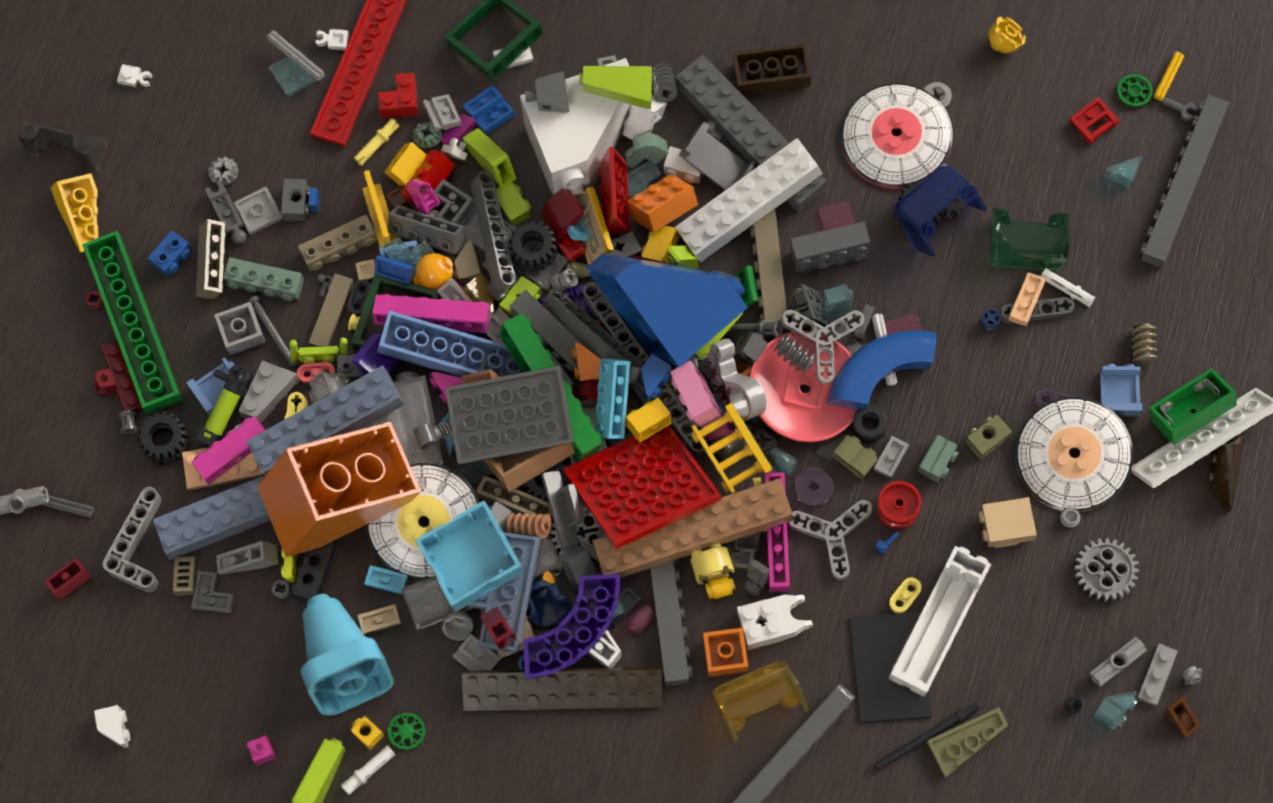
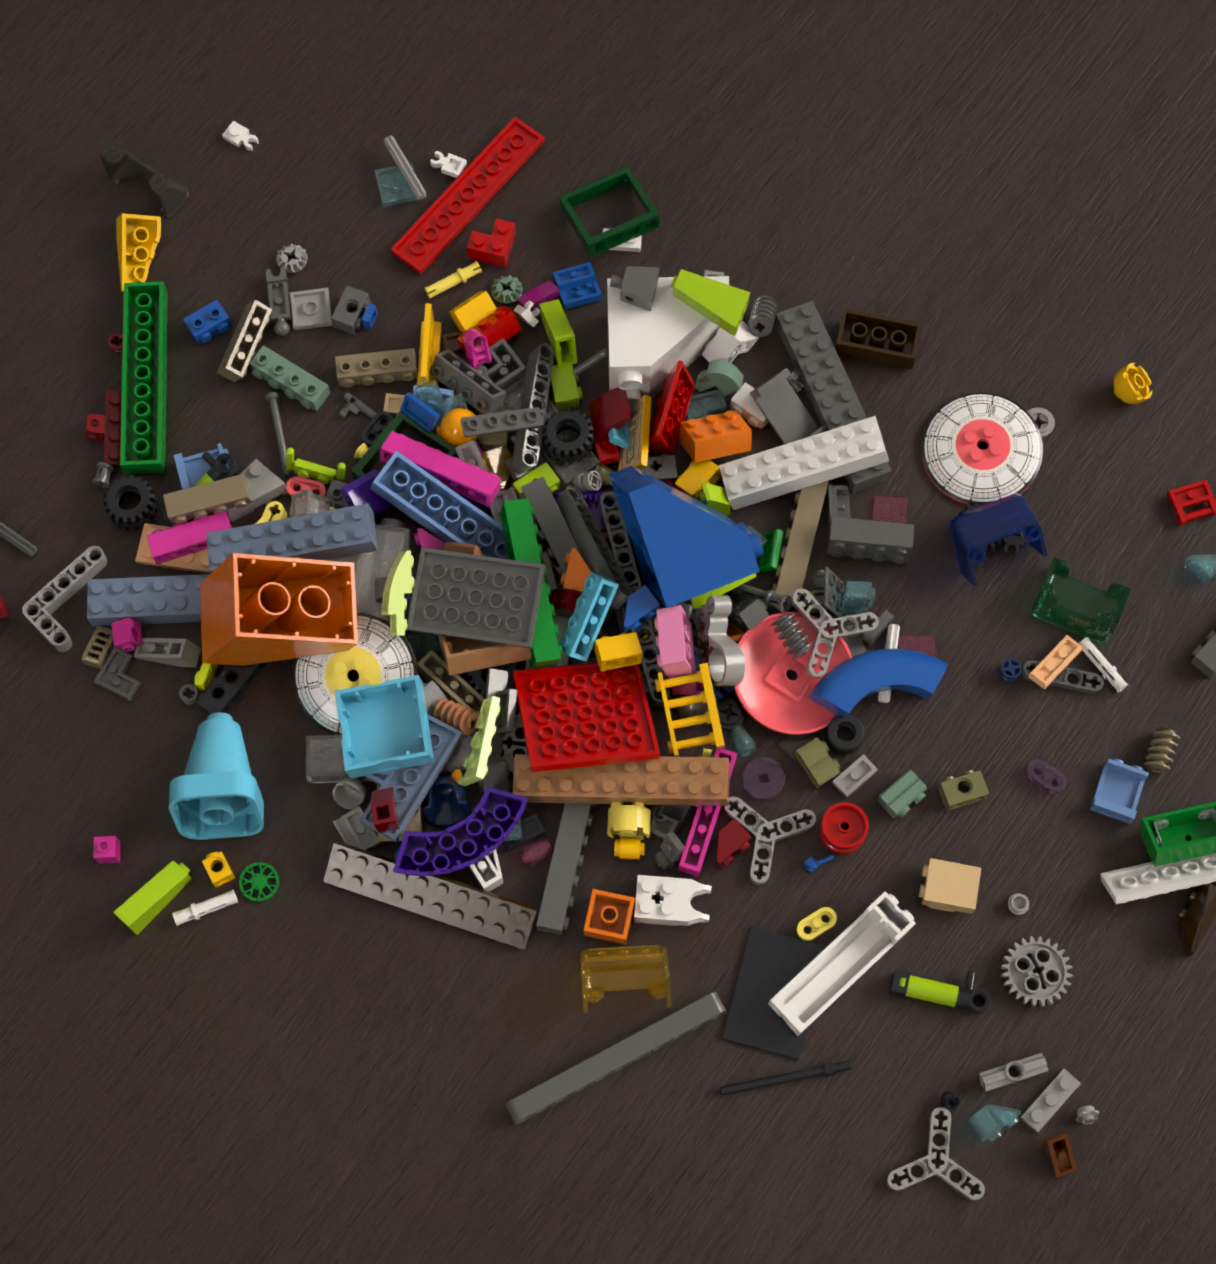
camera: 15 degrees right, 0 degrees up
(205, 555) = (127, 634): none -> dark pink brick
(234, 410) = (207, 498): none -> dark tan brick
(240, 328) = (247, 419): light grey brick -> none
(331, 311) = (344, 433): dark tan tile -> none
(379, 619) = (274, 759): tan plate -> none
(386, 580) = (296, 721): medium azure plate -> none
(435, 427) = (397, 584): none -> yellowish green slope
(442, 112) = (529, 272): light grey plate -> none
(471, 253) = (501, 422): none -> dark grey bracket
(528, 174) = (590, 362): none -> dark grey hose
(563, 559) = (481, 742): none -> yellowish green wing
(789, 225) = (838, 502): none -> dark grey hinge
(805, 550) = (731, 840): none -> dark red slope
(962, 742) = (821, 1097): olive wing -> none
(1032, 616) = (937, 992): none -> piece
(1067, 481) = (1041, 870): dish -> none
(1089, 765) = (944, 1170): none -> light grey piece

